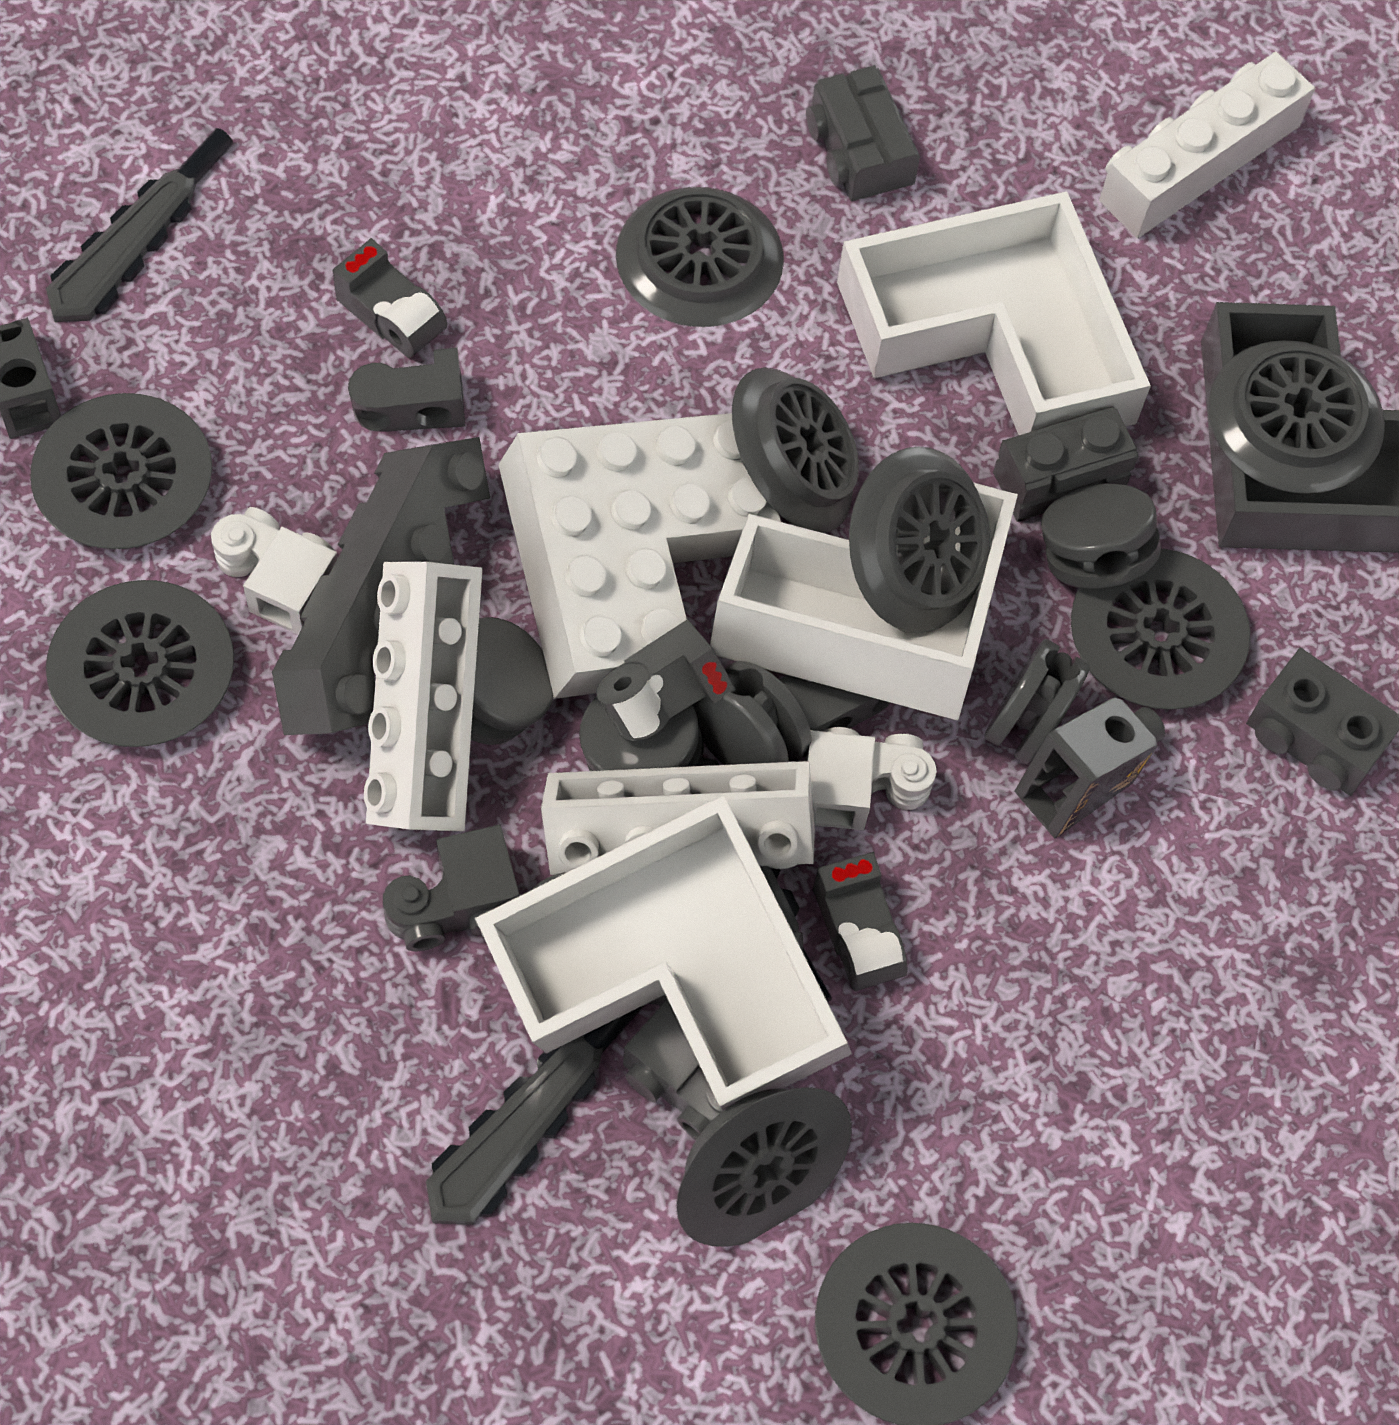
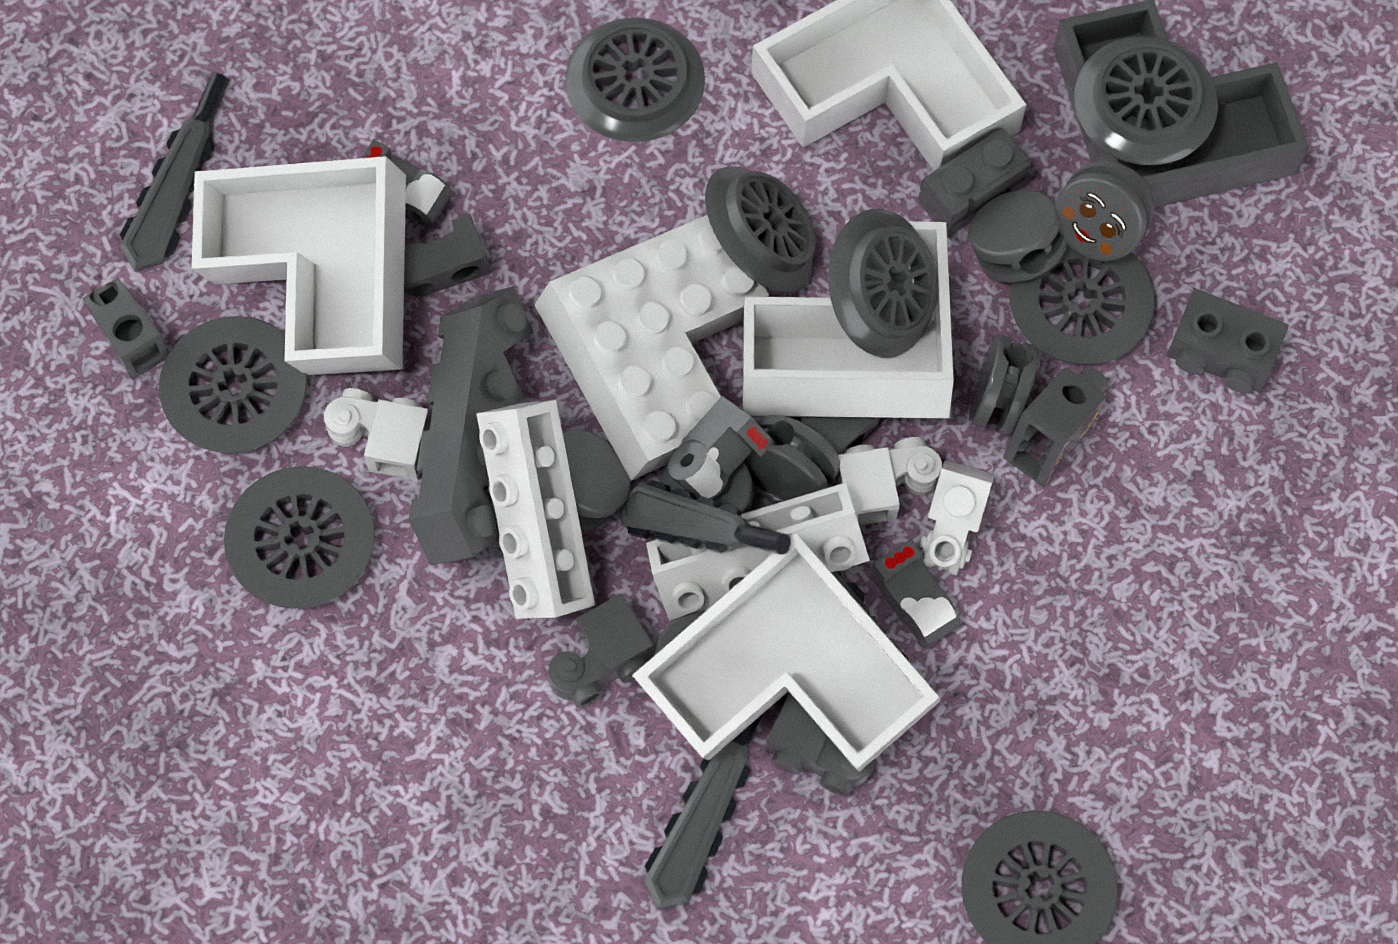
camera: 10 degrees left, 5 degrees up
(284, 340) = (332, 237): none -> white piece
(609, 758) = (677, 515): none -> dark grey sword
(762, 1164) = (895, 800): dark grey piece -> none
(939, 830) = (957, 509): none -> white brick
(1213, 528) = (1104, 210): none -> dark grey head

